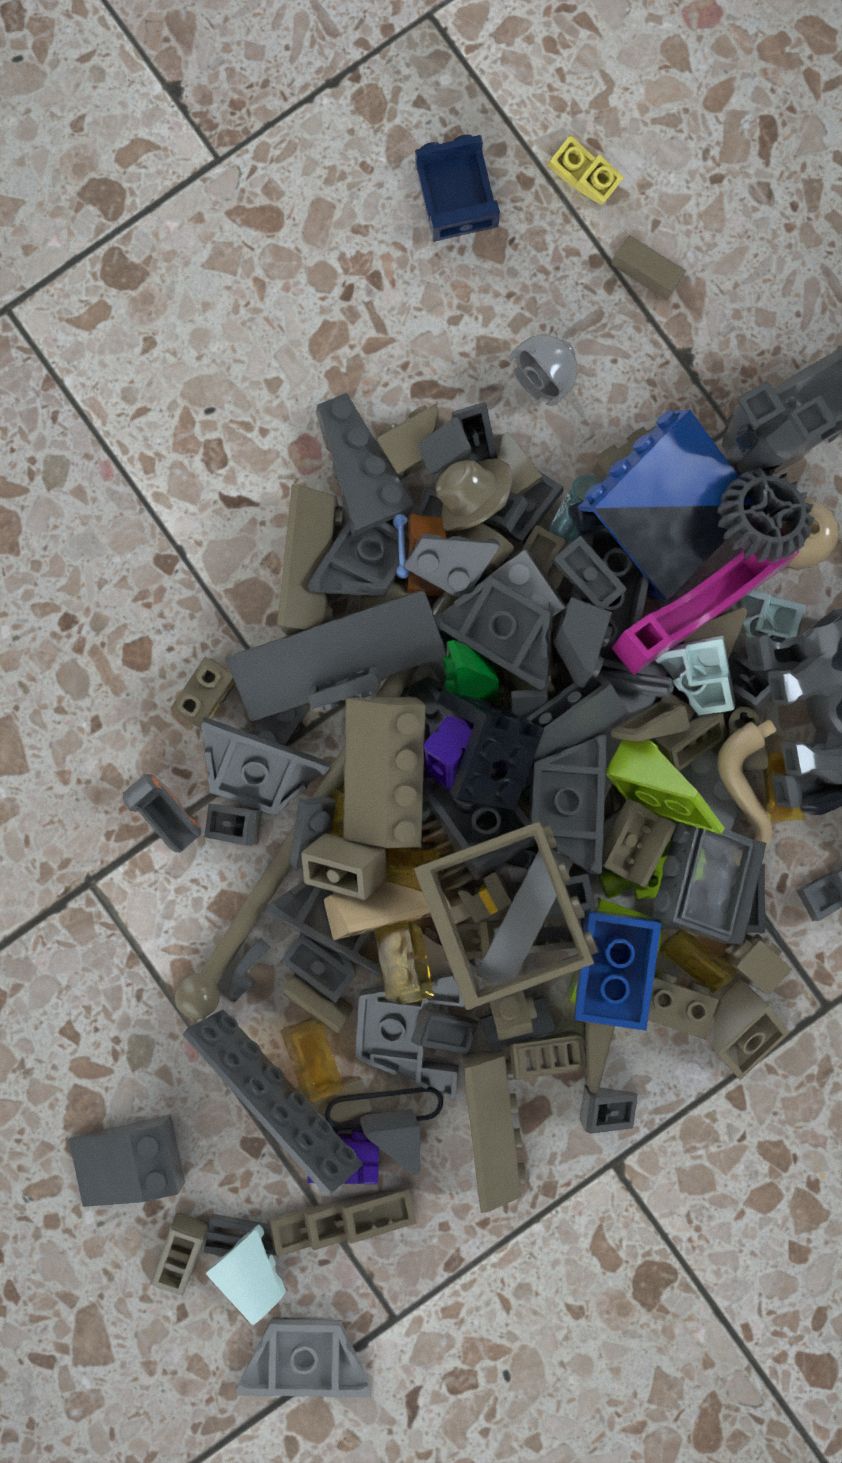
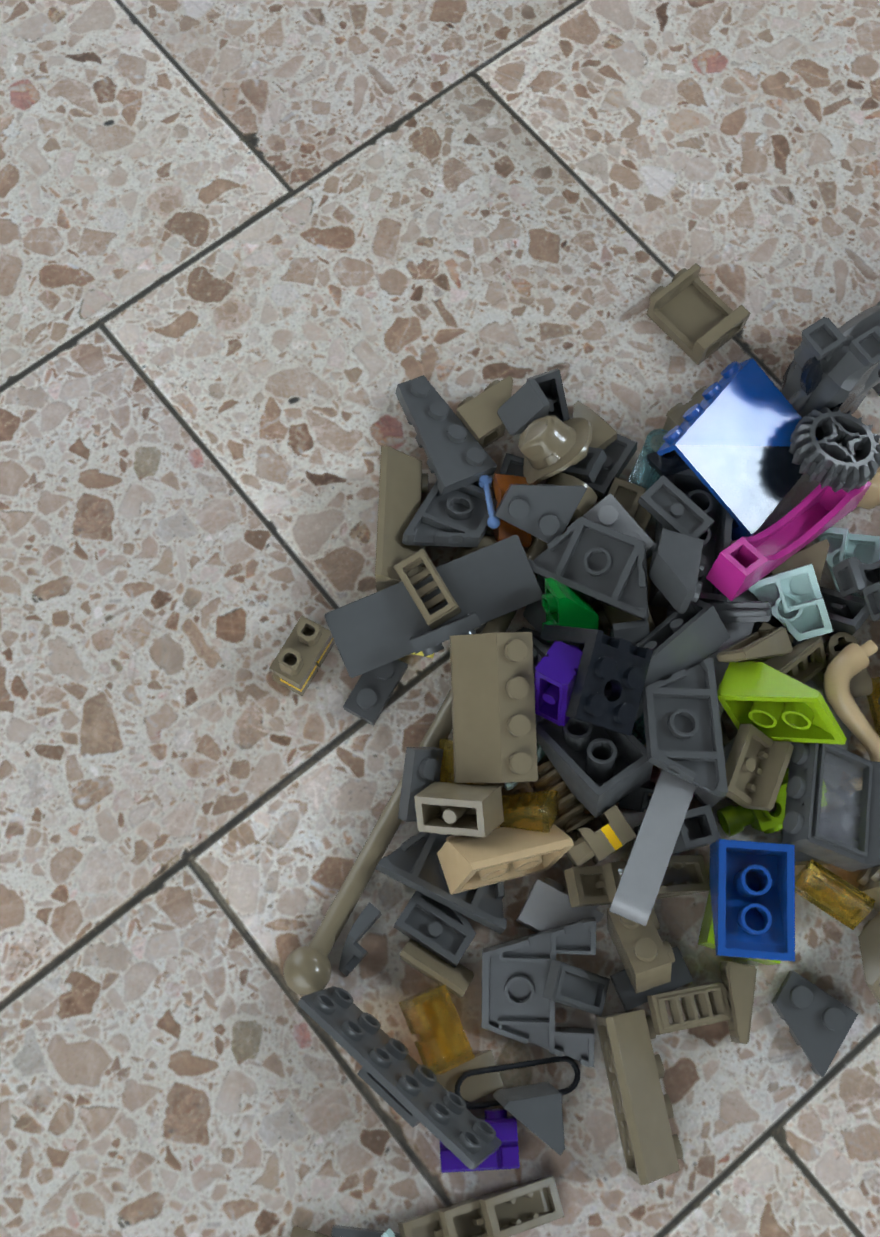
camera: 10 degrees left, 15 degrees down
(128, 1163) = (235, 1169): dark grey slope -> none
(162, 812) = (263, 776): dark grey animal -> none
(233, 824) = (336, 784): dark grey slope -> none
(255, 768) = (358, 725): dark grey wing -> none
(324, 659) = (441, 615): none -> dark tan slope
(403, 978) = (530, 918): clear yellow piece -> none
(450, 937) = (686, 794): dark tan window -> none
(456, 187) = (510, 202): dark blue panel -> none
(545, 367) = (608, 341): light grey cylinder -> none
(584, 172) = (626, 187): light yellow slope -> none
(607, 1110) = (759, 1065): dark grey slope -> none
(643, 338) = (695, 315): none -> dark tan panel
(648, 267) = (685, 254): dark tan slope -> none
(664, 1071) = (813, 1019): none -> dark grey wing
(681, 1006) = (826, 944): dark tan brick -> none

